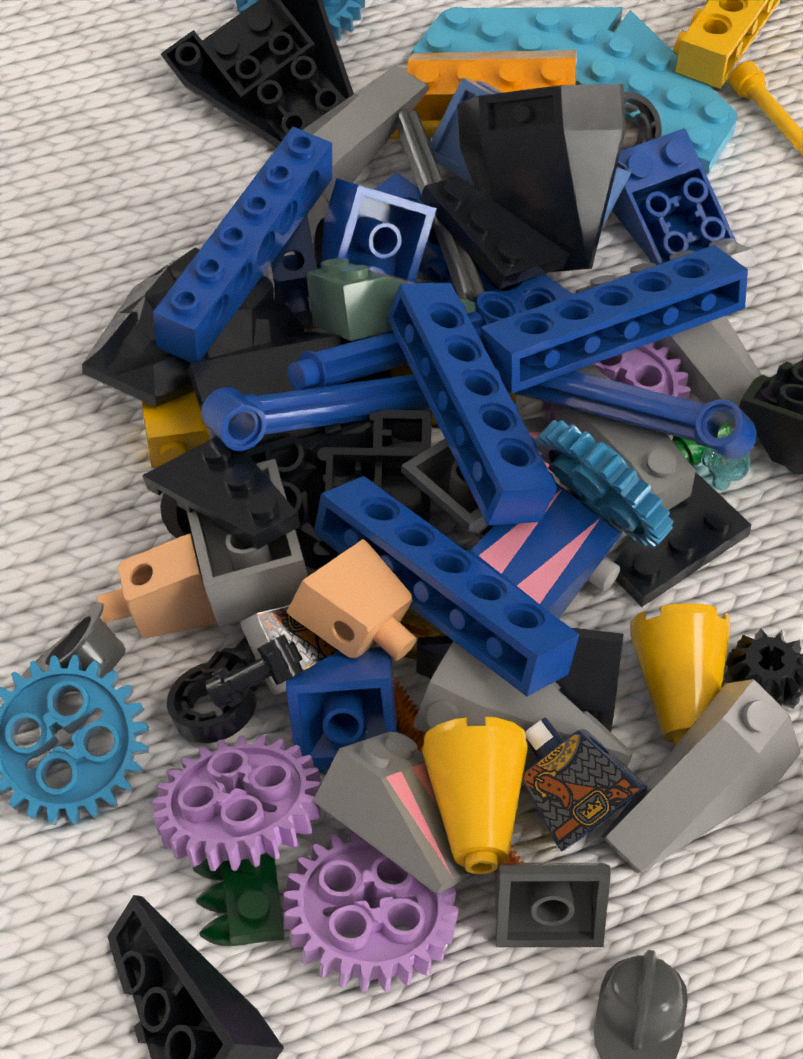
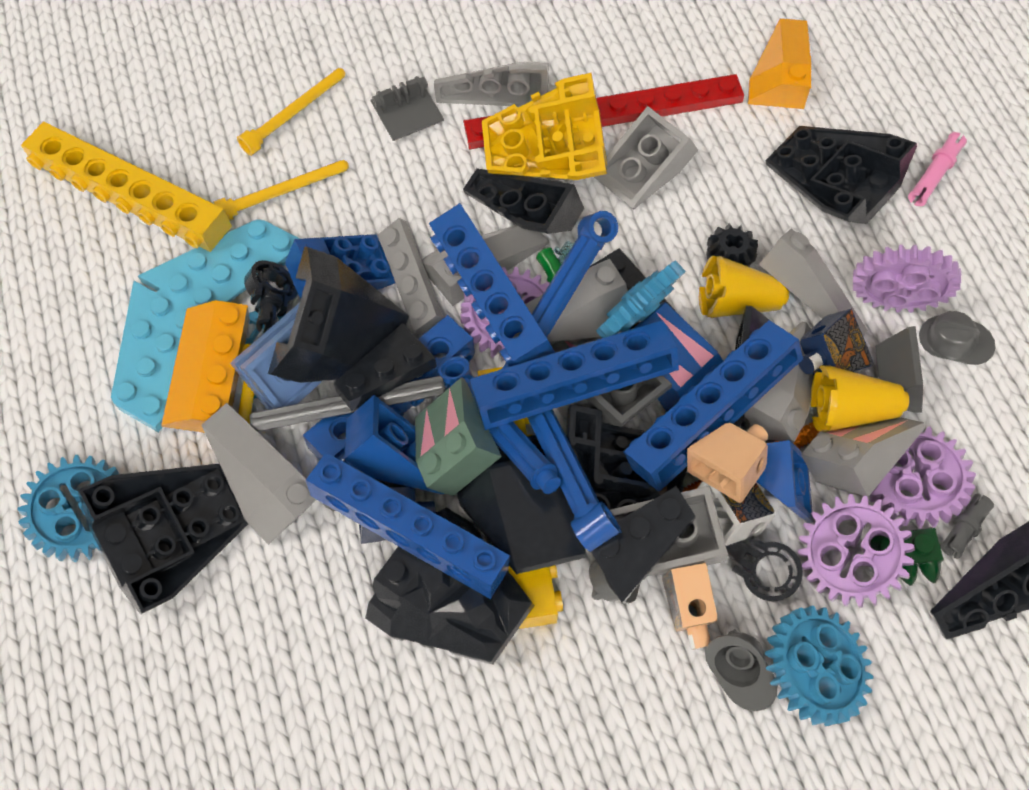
camera: 85 degrees left, 10 degrees up
(277, 660) = (771, 512): black bar -> none
(289, 980) = (967, 526): none -> dark grey pin
(711, 882) = (907, 278): none -> lavender gear

